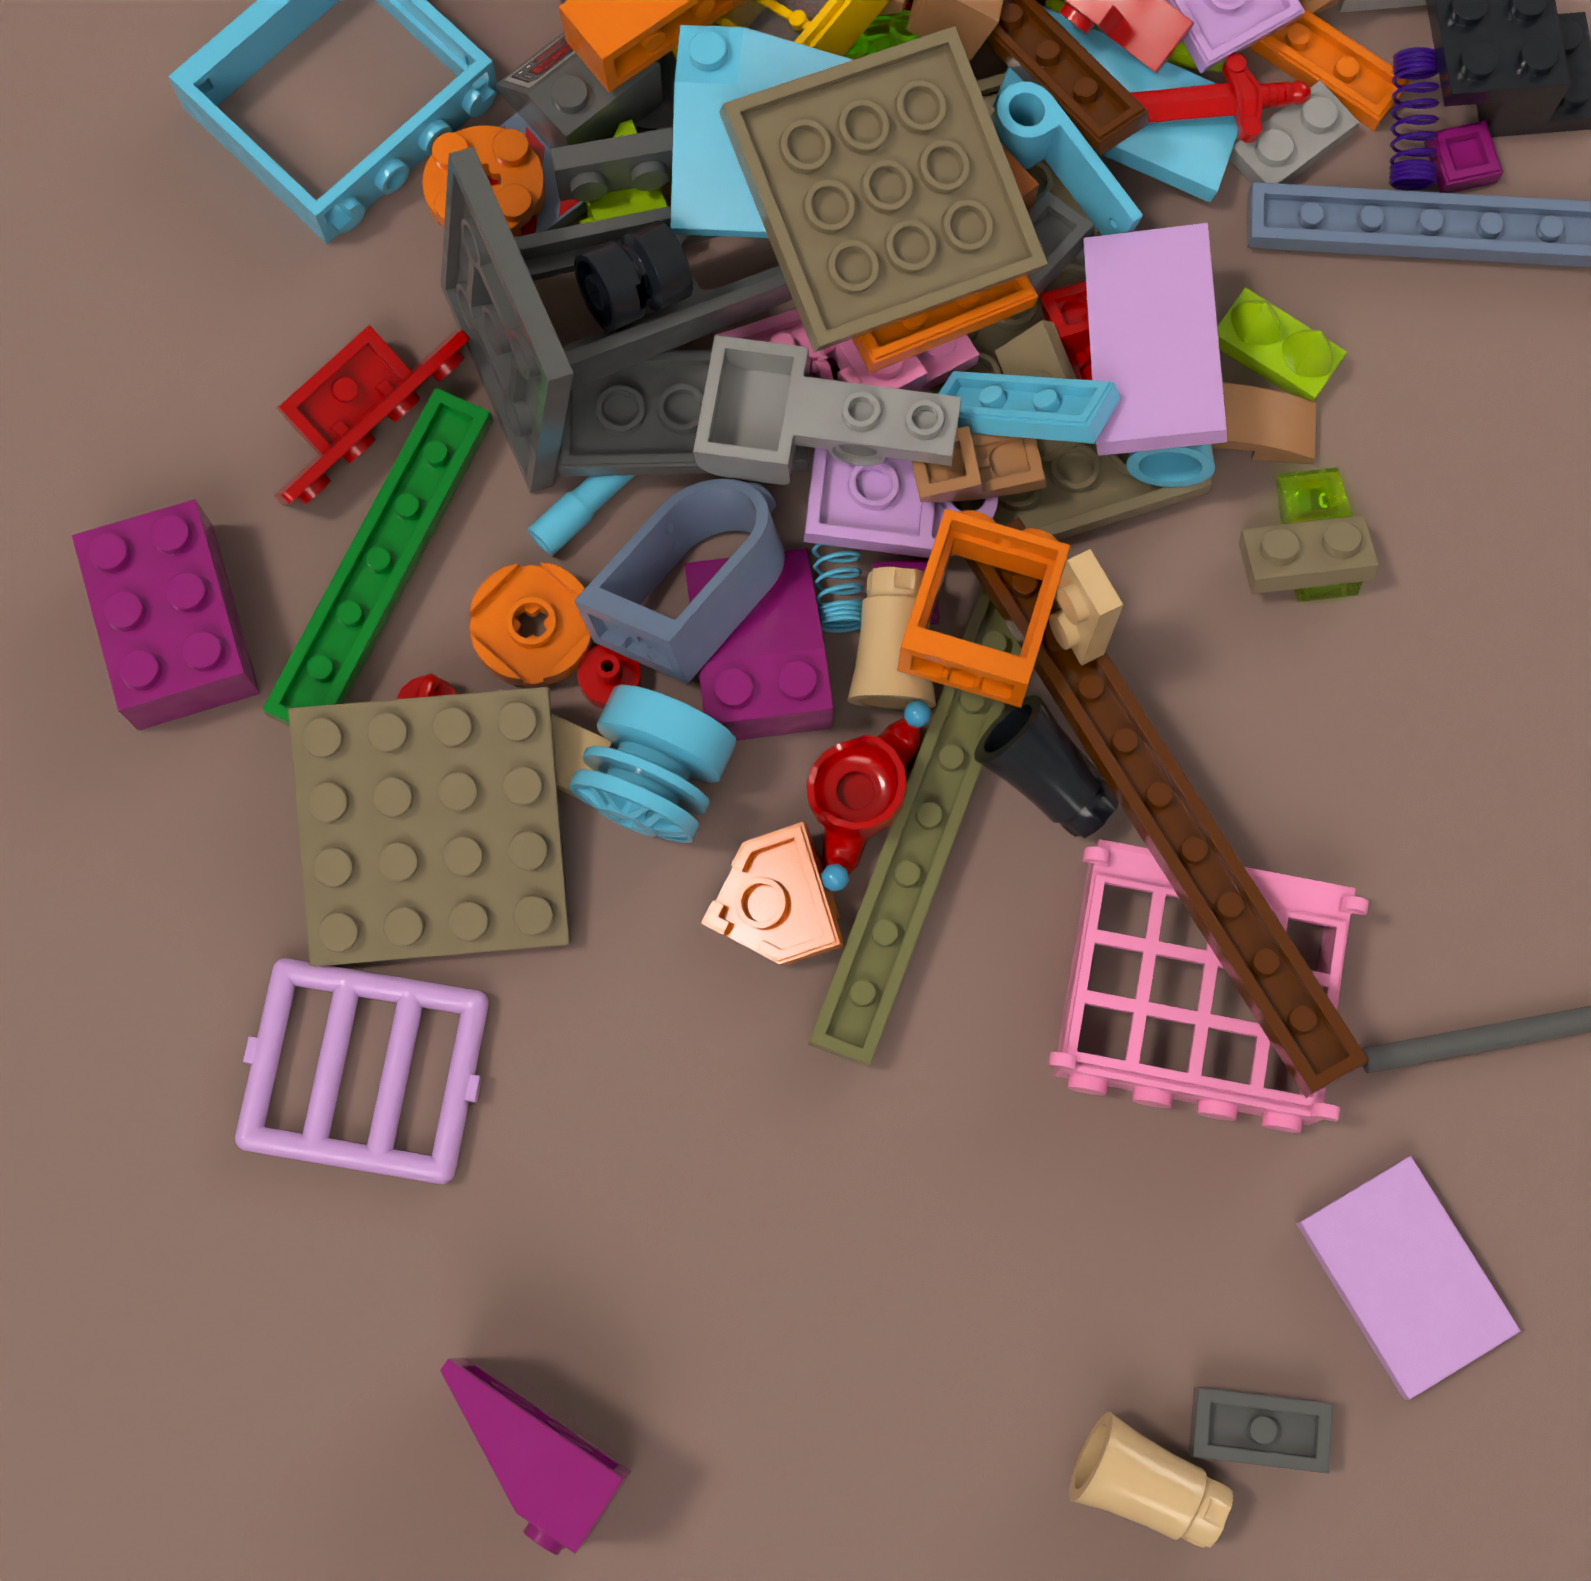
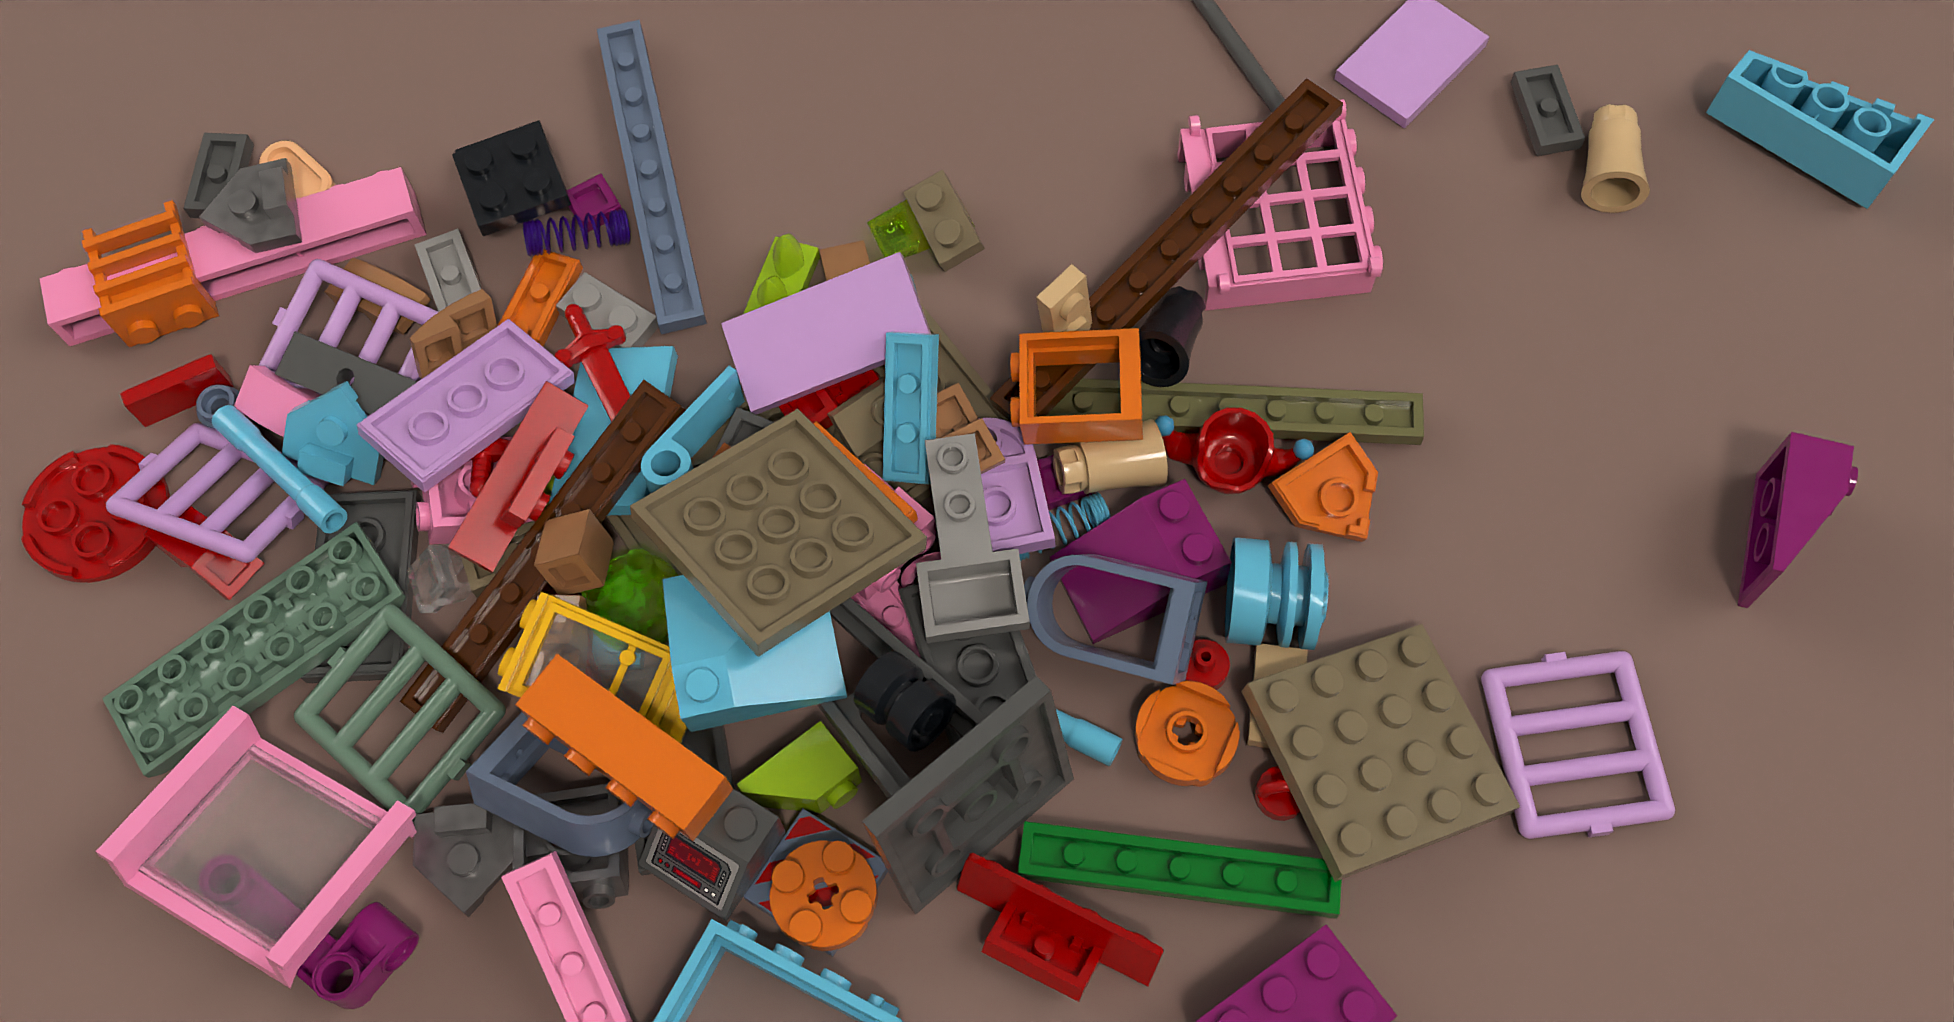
camera: 100 degrees left, 10 degrees down
(614, 164) = (805, 787): dark grey plate -> none

